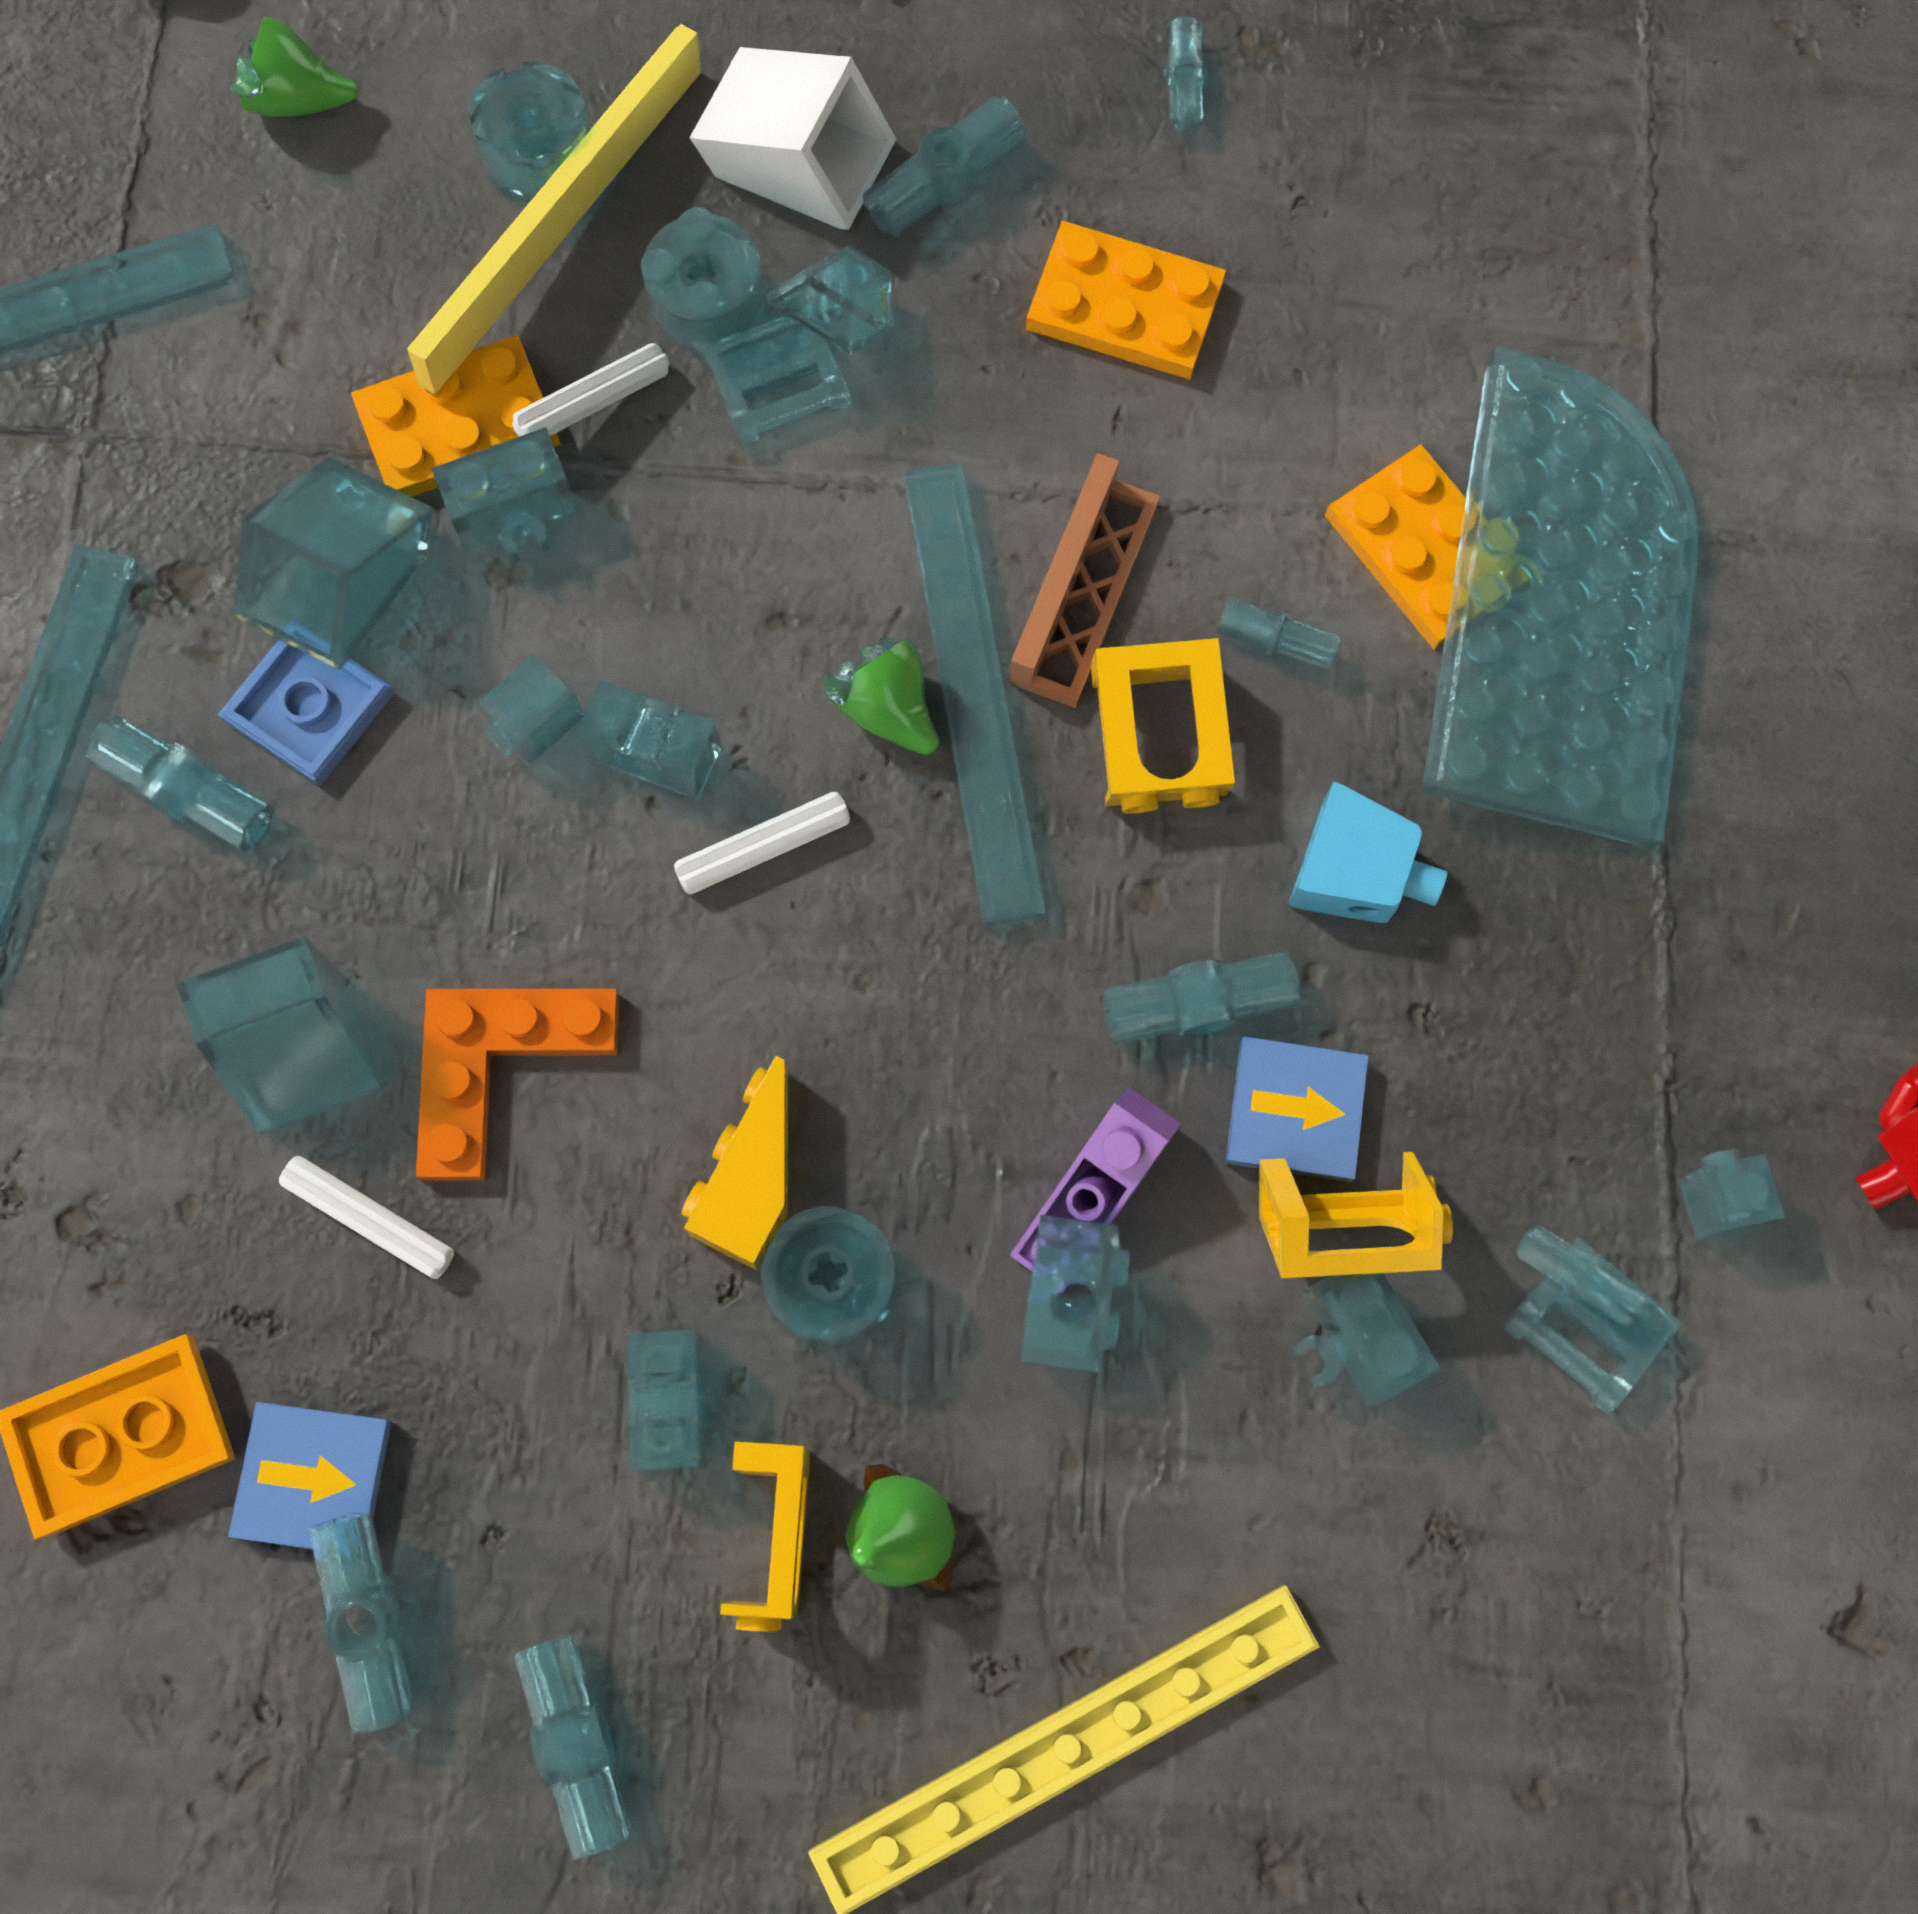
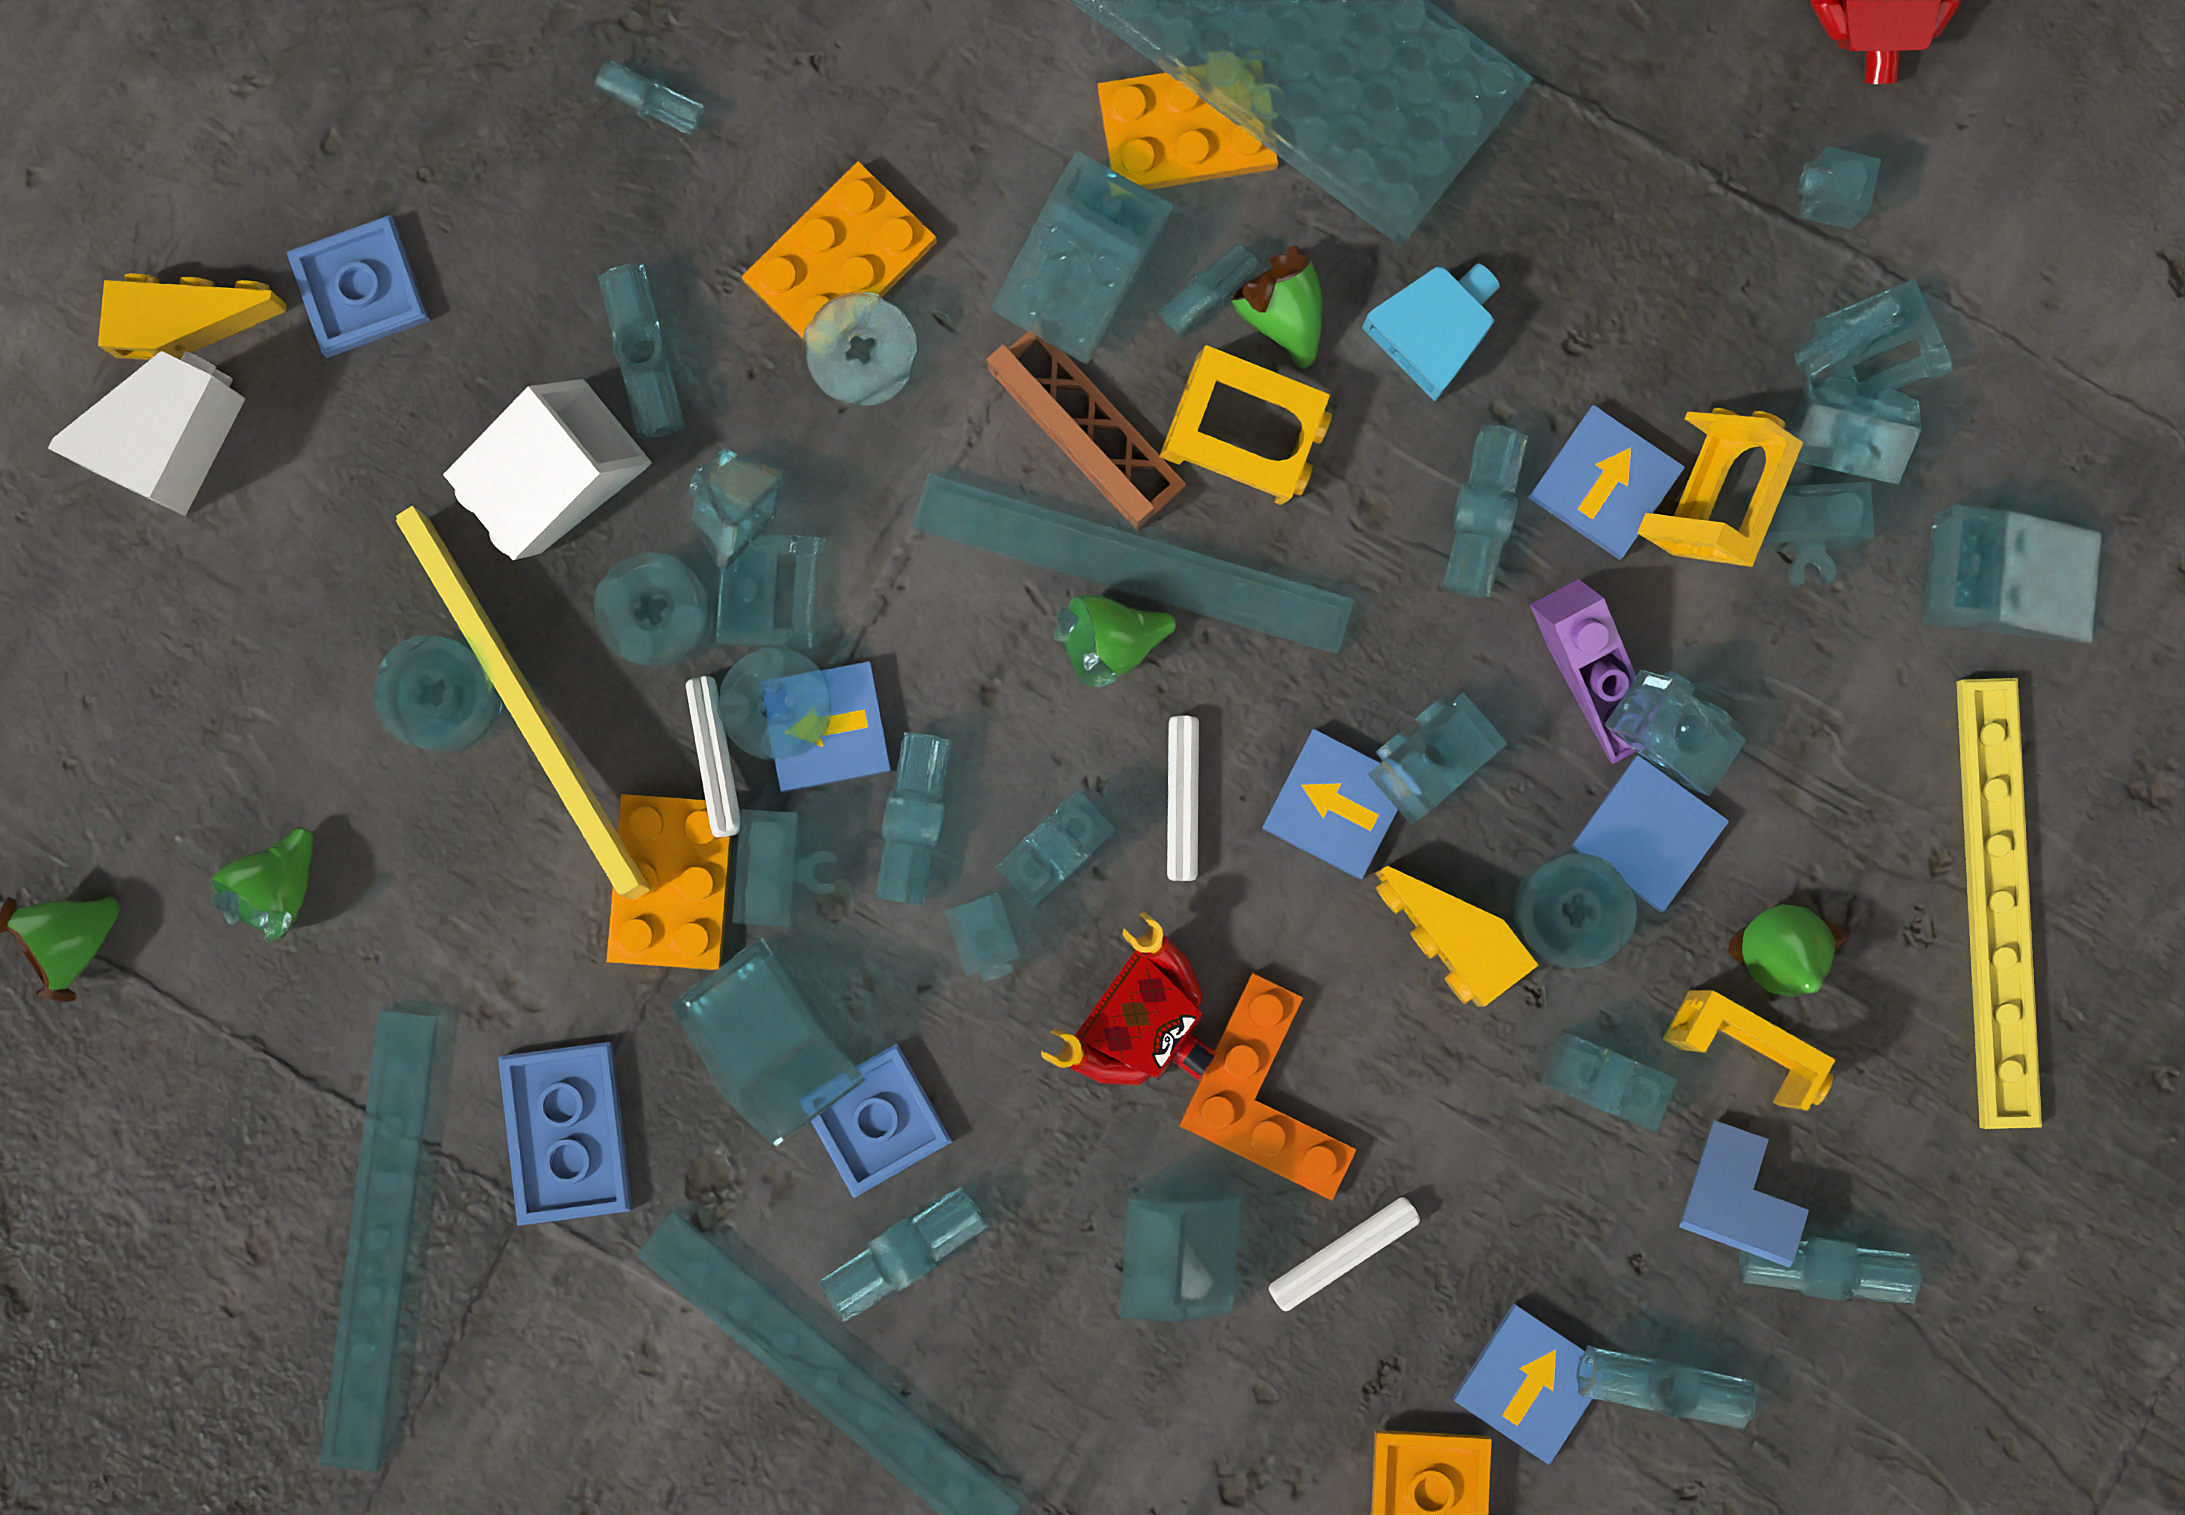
camera: 60 degrees left, 10 degrees up
(170, 434) = (565, 1133): none -> medium blue tile
(515, 897) = (1141, 1019): none -> red torso
(587, 1594) = (1727, 1206): none -> medium blue tile
(617, 599) = (913, 818): none -> clear light blue piece
(661, 392) = (779, 736): none -> clear light blue plate
(672, 486) = (854, 739): none -> medium blue tile
(829, 995) = (1332, 806): none -> medium blue tile
(885, 1061) = (1460, 736): none -> clear light blue brick
(954, 1326) = (1650, 832): none -> medium blue tile
(1081, 338) = (829, 338): none -> clear light blue plate
(1246, 498) = (1083, 257): none -> clear light blue slope
(1301, 707) = (1286, 305): none -> bright green hat
(1428, 1587) = (2011, 574): none -> clear light blue slope
(1488, 1331) = (1856, 428): none -> clear light blue brick

